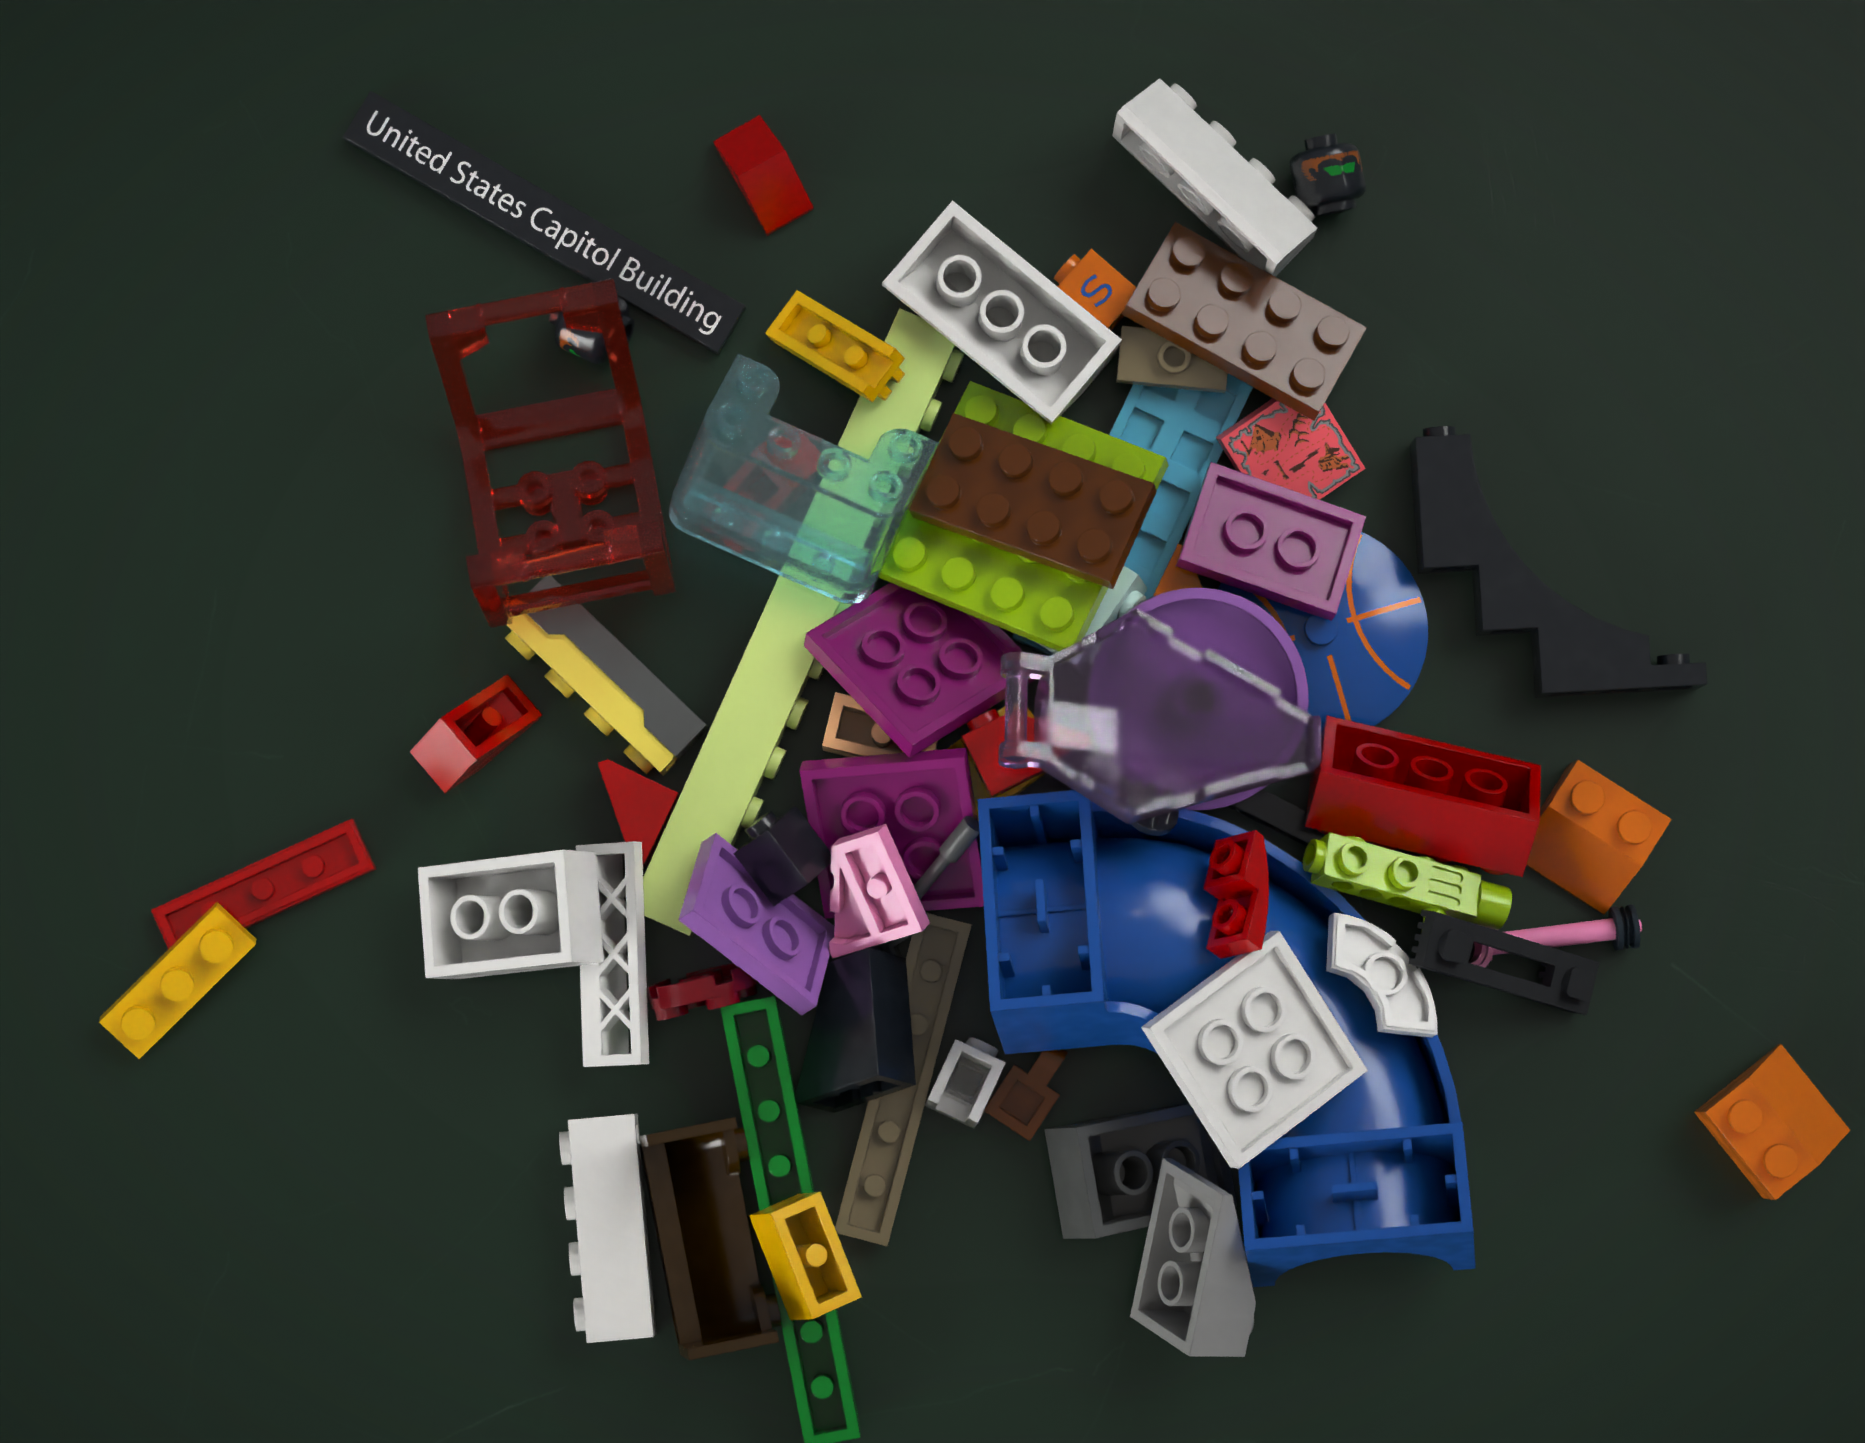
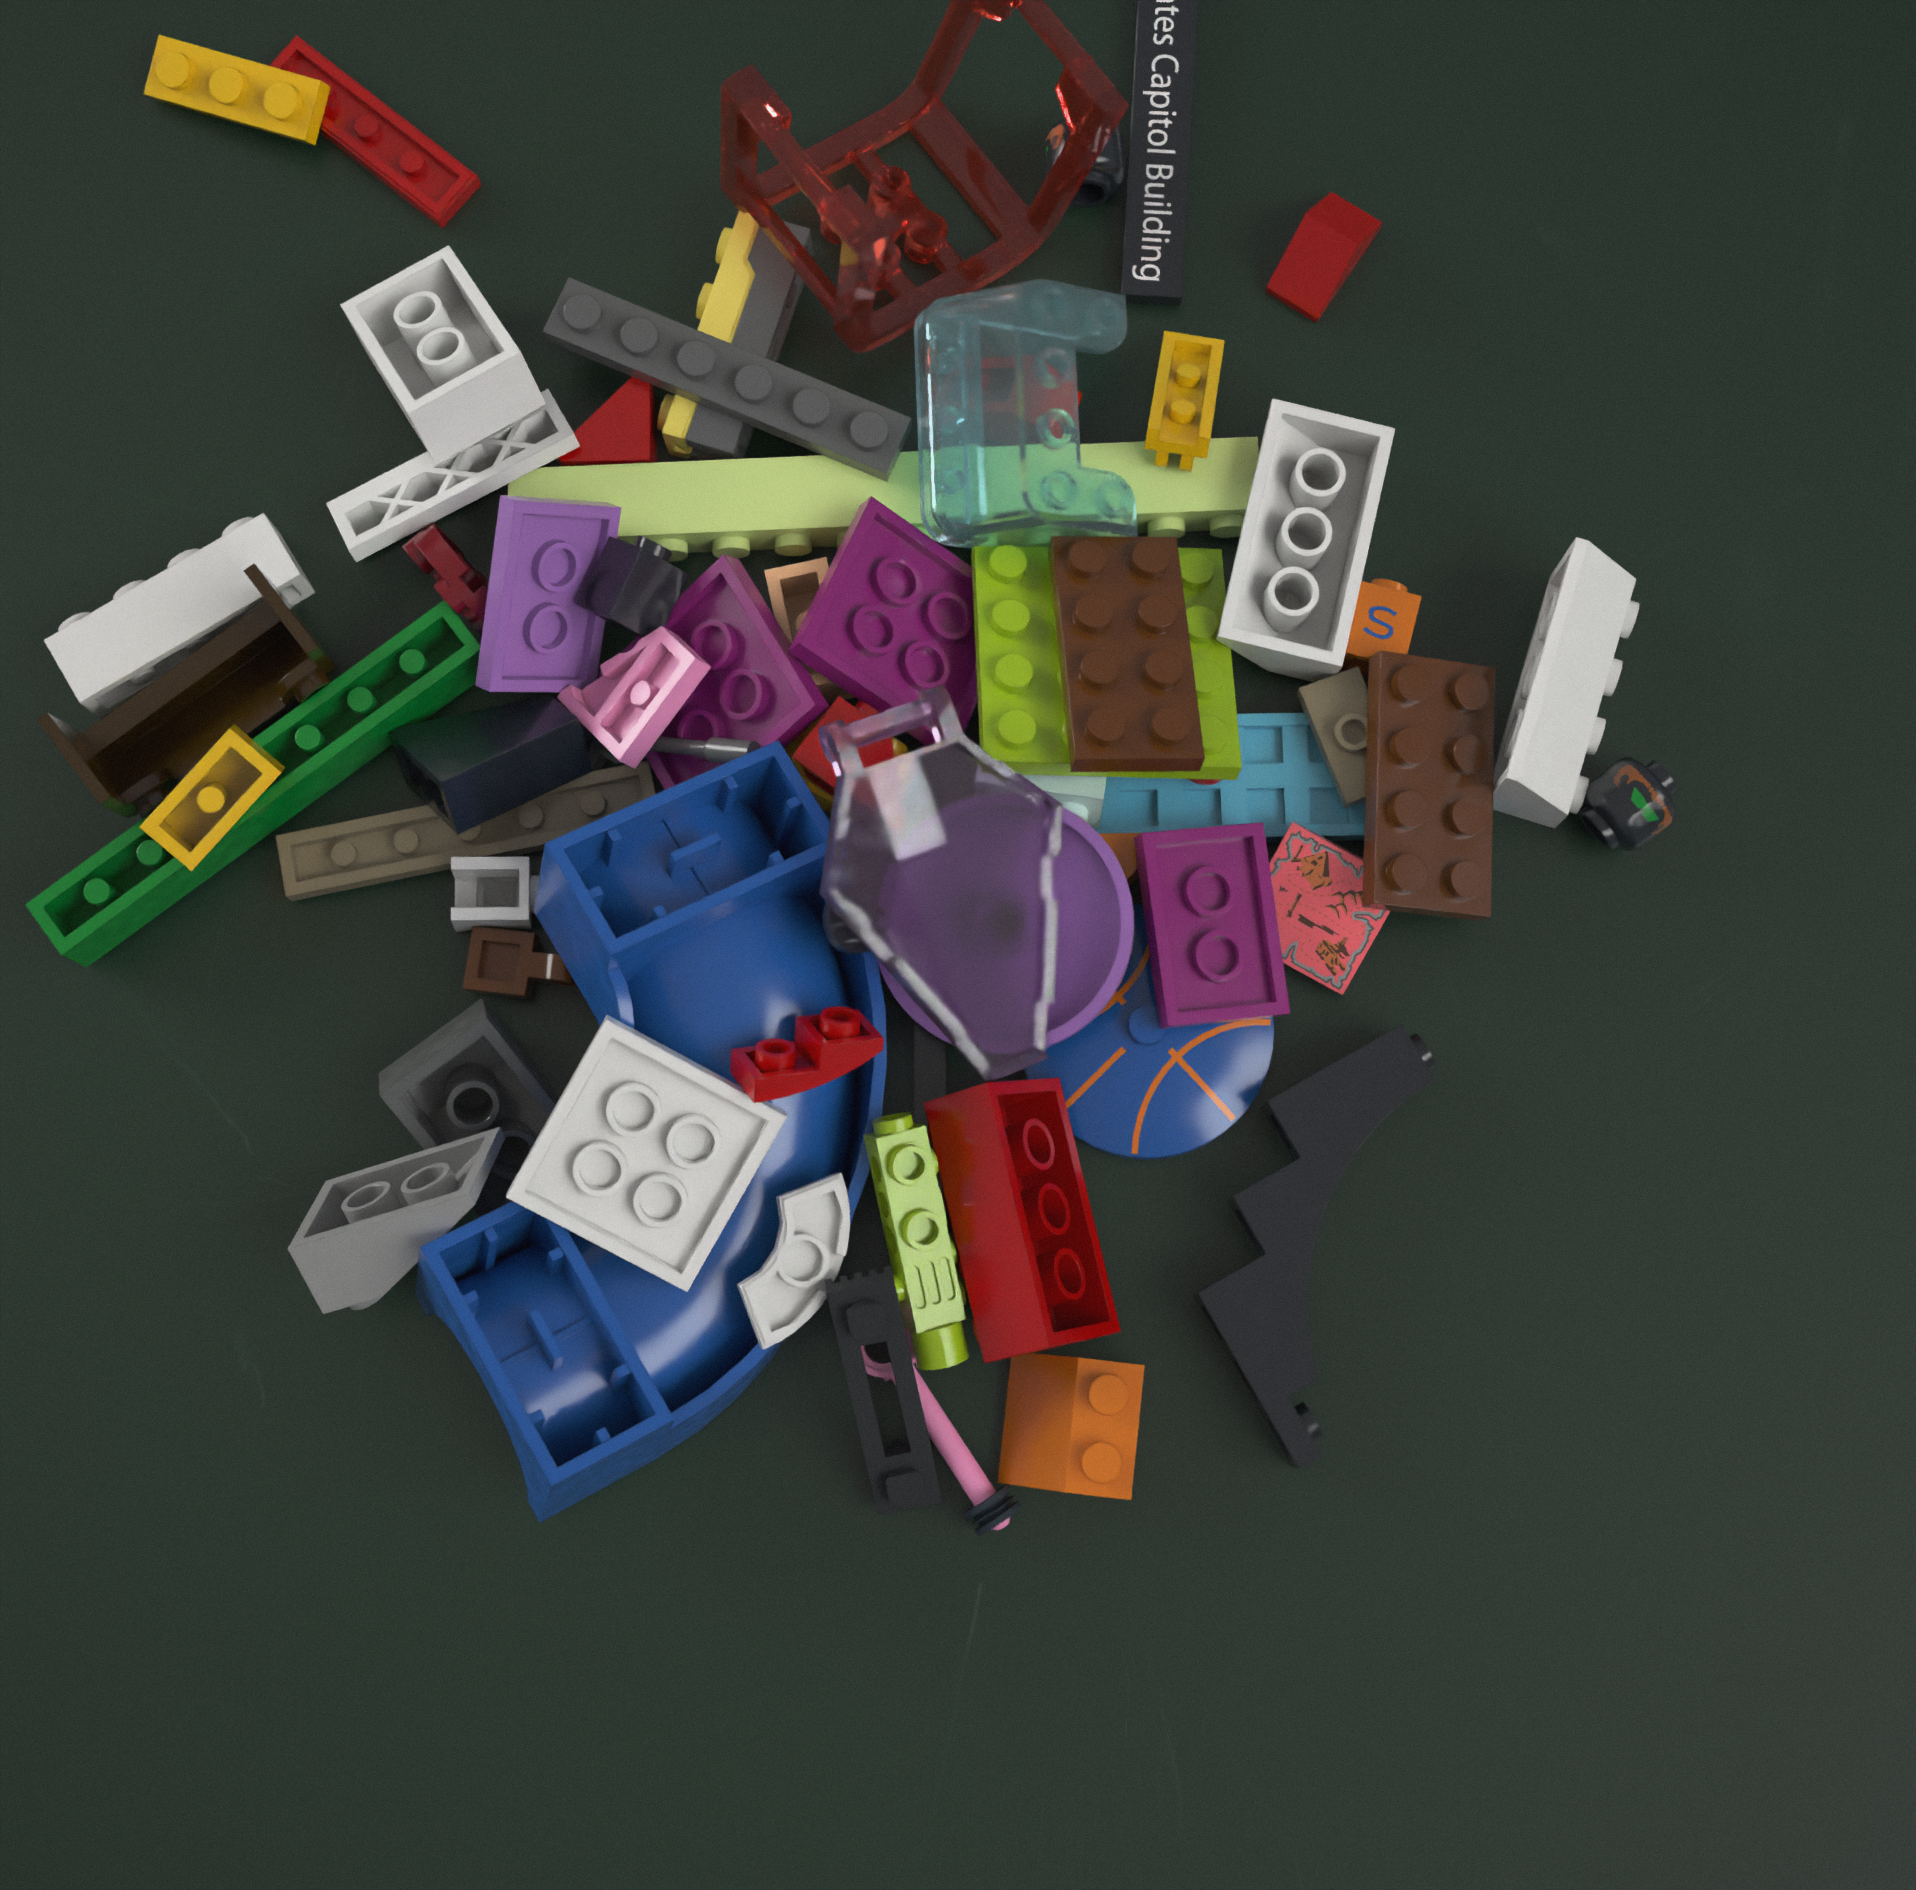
camera: 70 degrees right, 5 degrees down
(475, 733) = (618, 246): red slope -> none
(645, 699) = (728, 379): none -> dark grey plate
(1773, 1123) = (860, 1782): orange slope -> none

